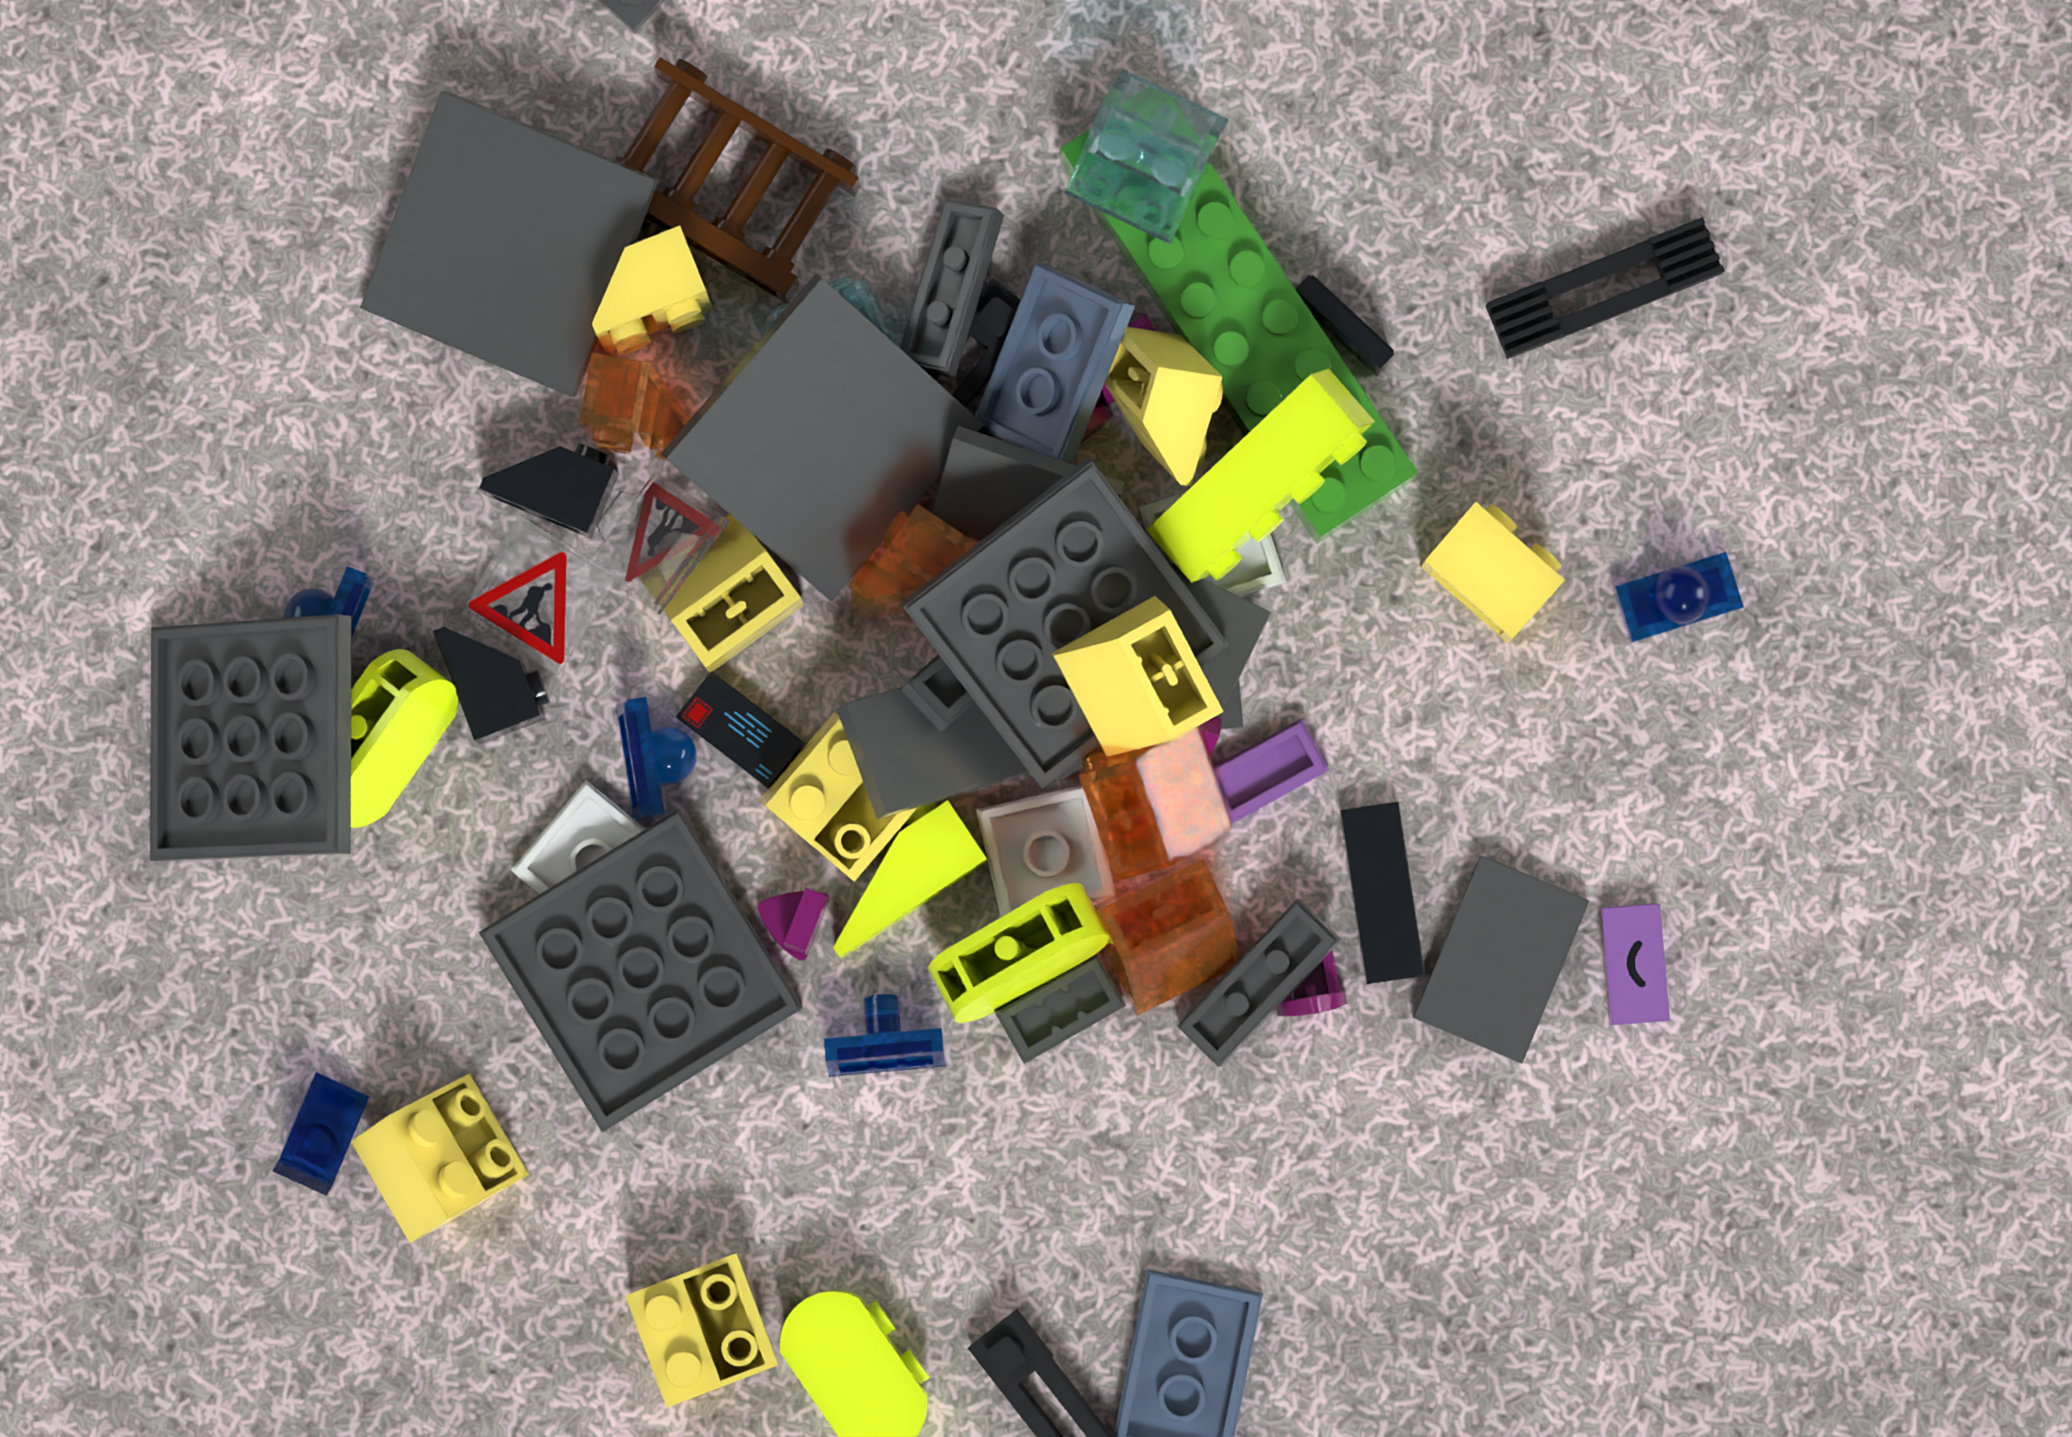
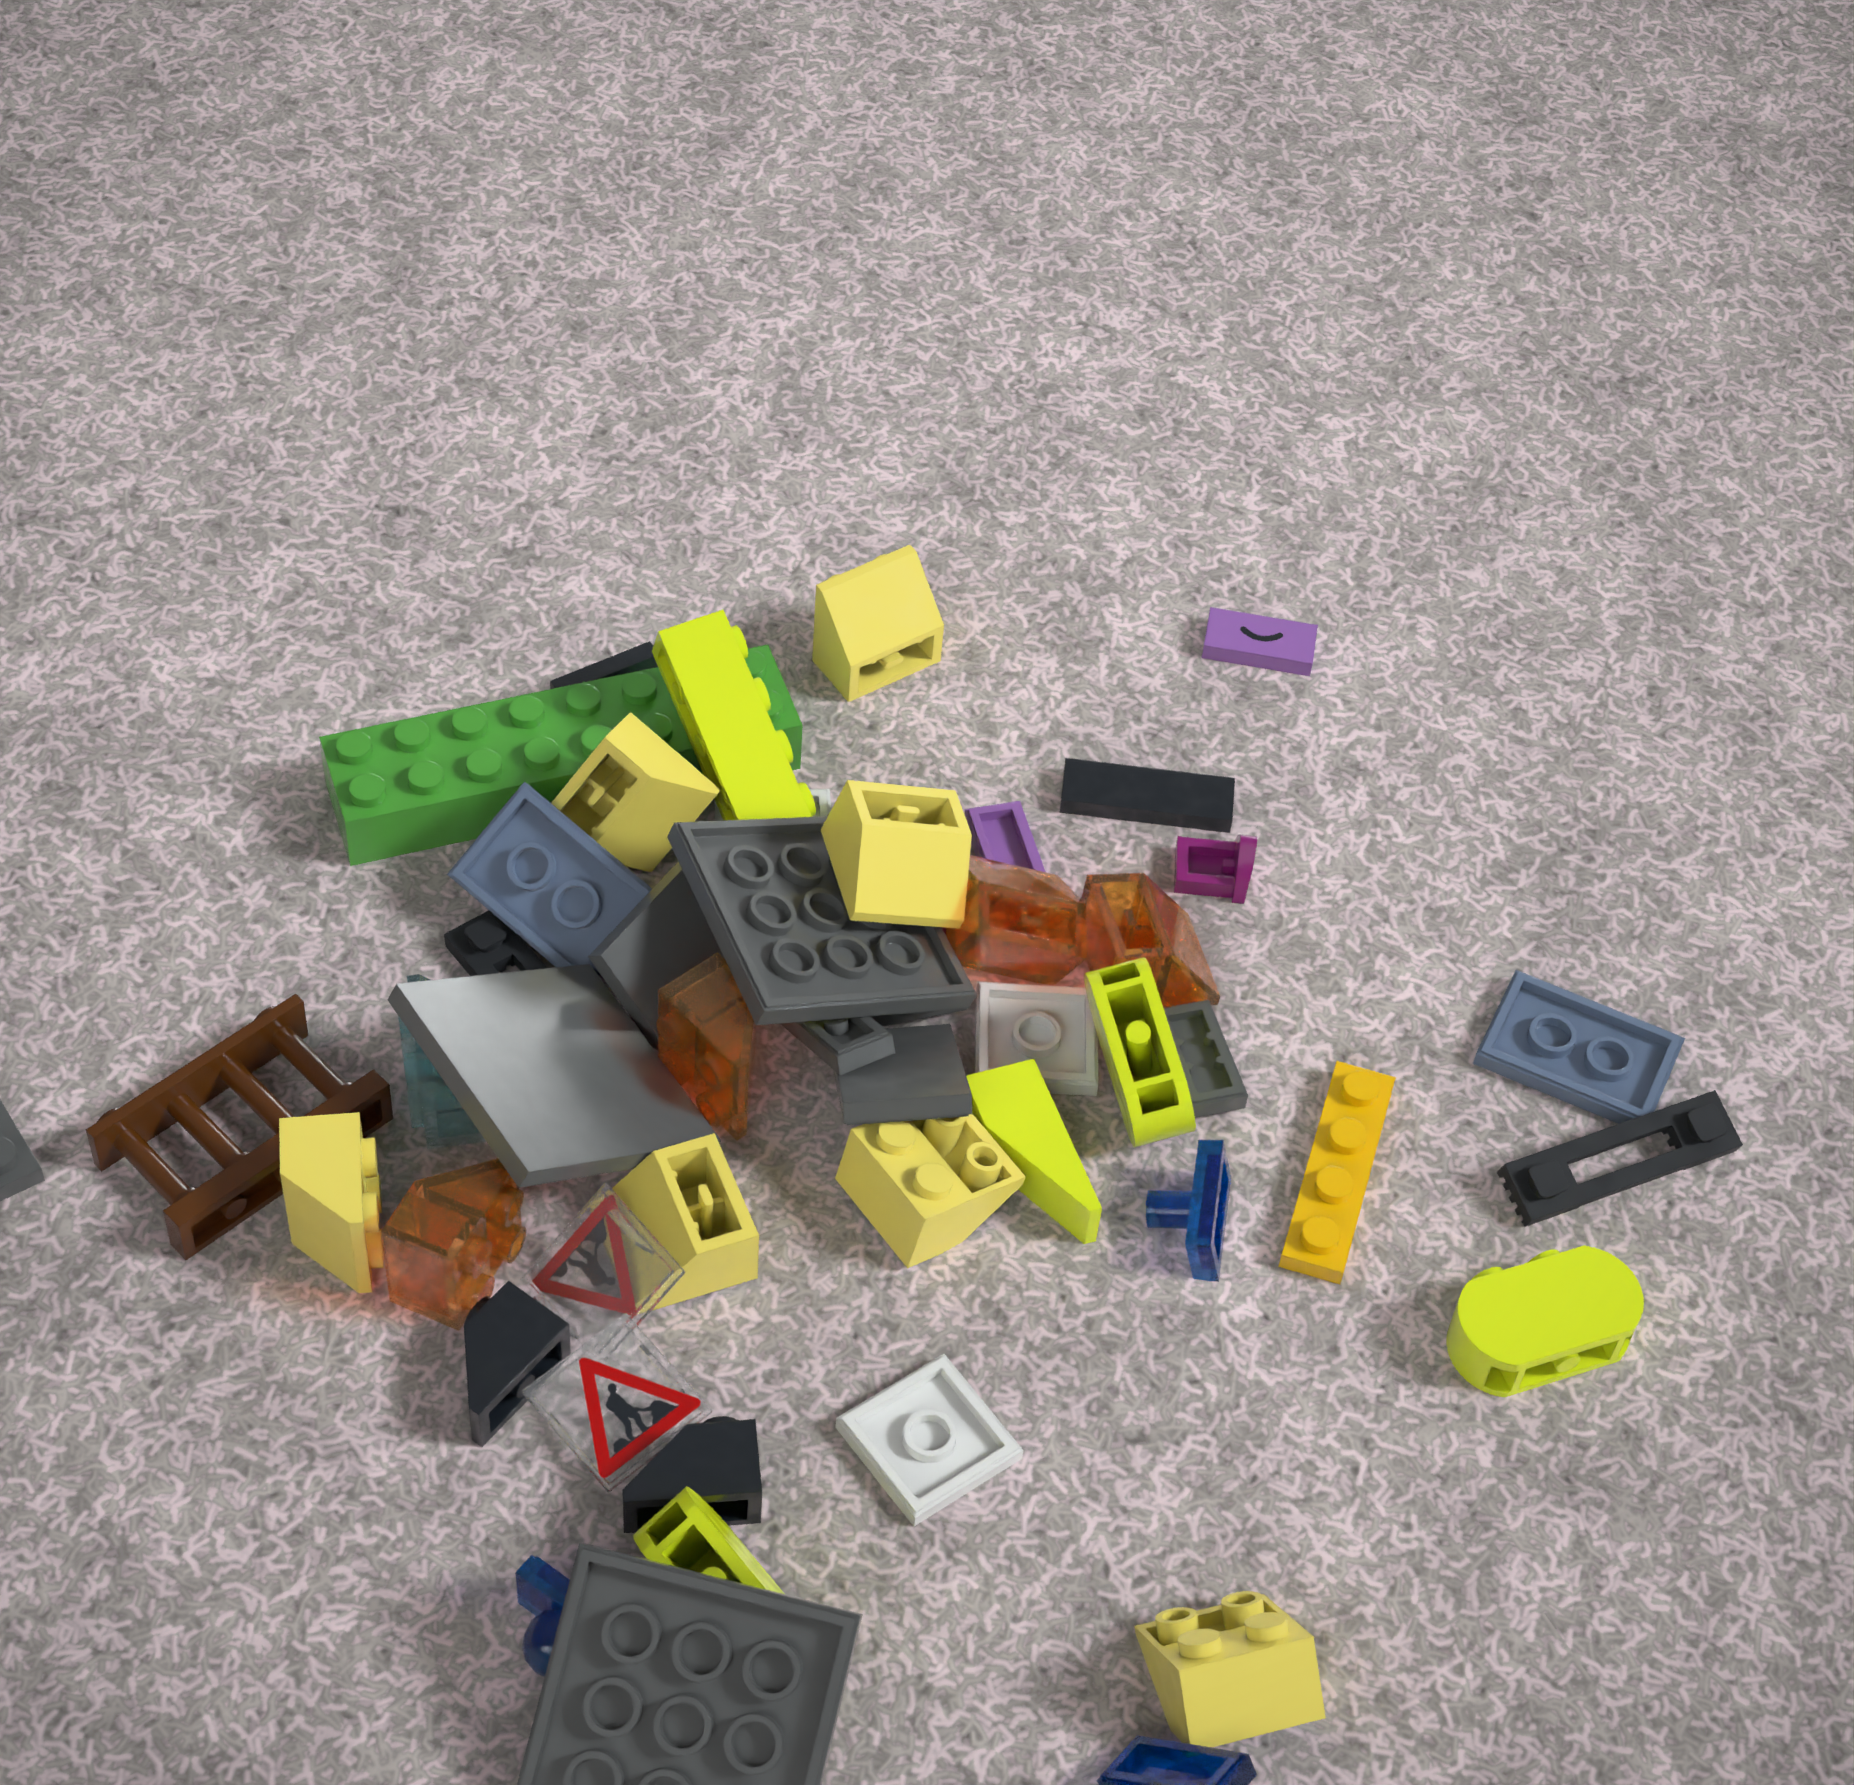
camera: 80 degrees left, 35 degrees down
(507, 242) = (216, 1328): dark grey tile -> none
(640, 970) = (1061, 1421): dark grey tile -> none
(651, 757) = (831, 1347): clear blue tile -> none
(701, 1330) = (1477, 1446): light yellow slope -> none
(740, 730) = (827, 1265): black tile -> none
(794, 919) = (1050, 1251): magenta tile -> none
(951, 286) = (406, 947): dark grey tile -> none
(977, 1162) = (1337, 1173): none -> yellow plate
(1146, 155) = (389, 735): clear light blue slope -> none
(1259, 982) = (1212, 895): dark grey tile -> none
(1501, 959) = (1232, 728): dark grey tile -> none
(1678, 597) = (940, 536): clear blue tile -> none
(1682, 259) = (650, 571): black container -> none

